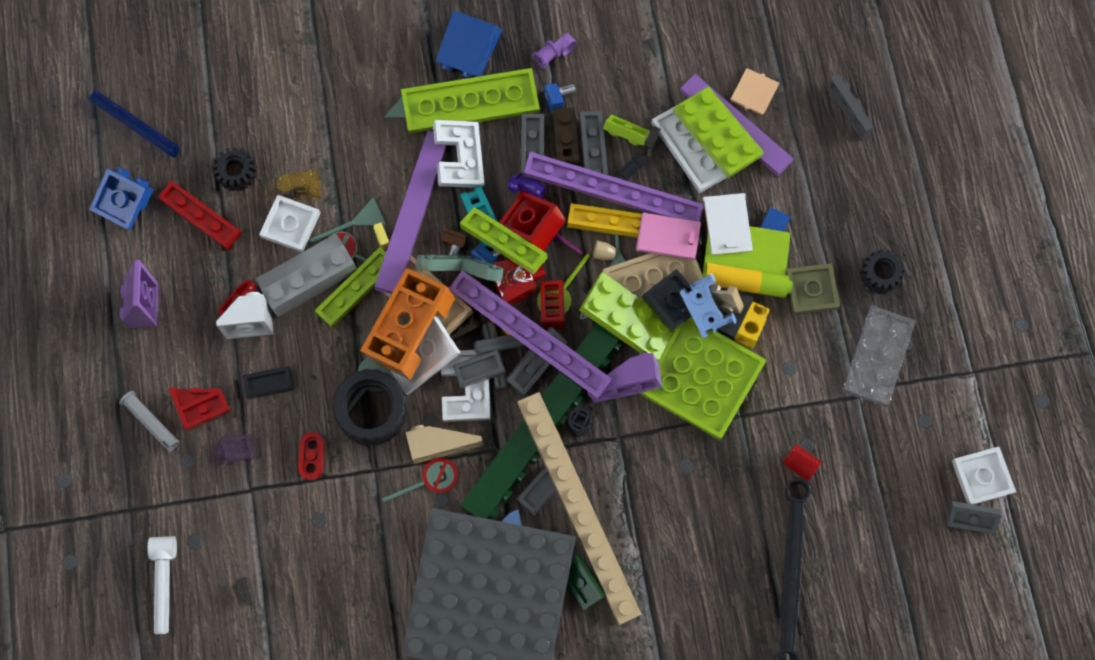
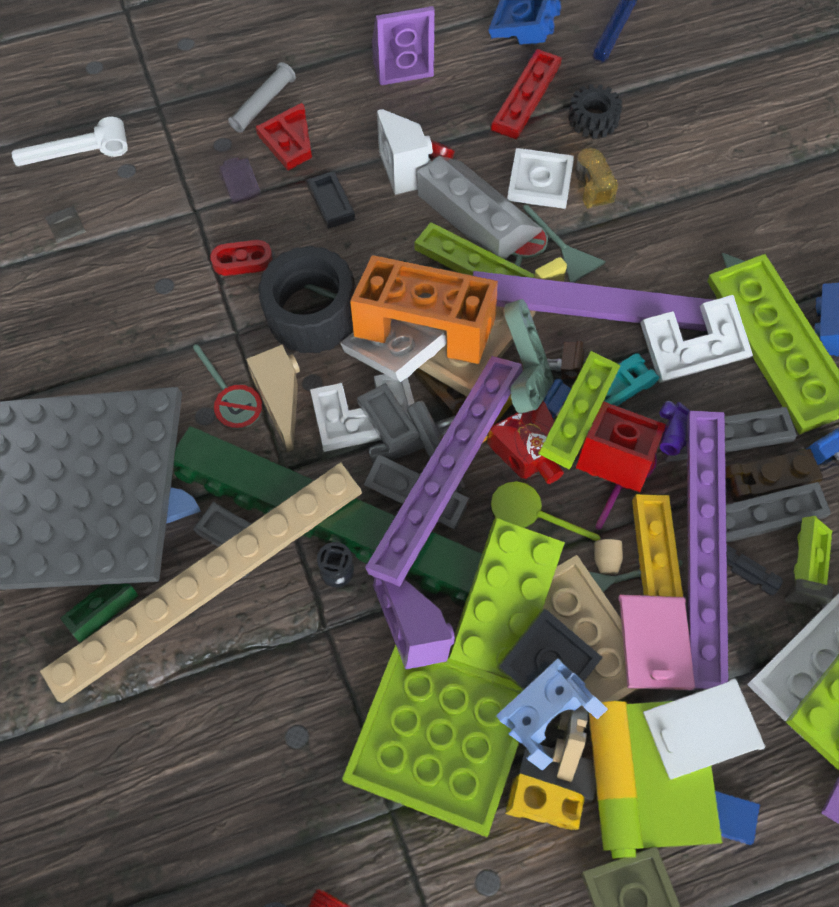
camera: 80 degrees right, 10 degrees down
(552, 319) = (491, 490): red slope -> none

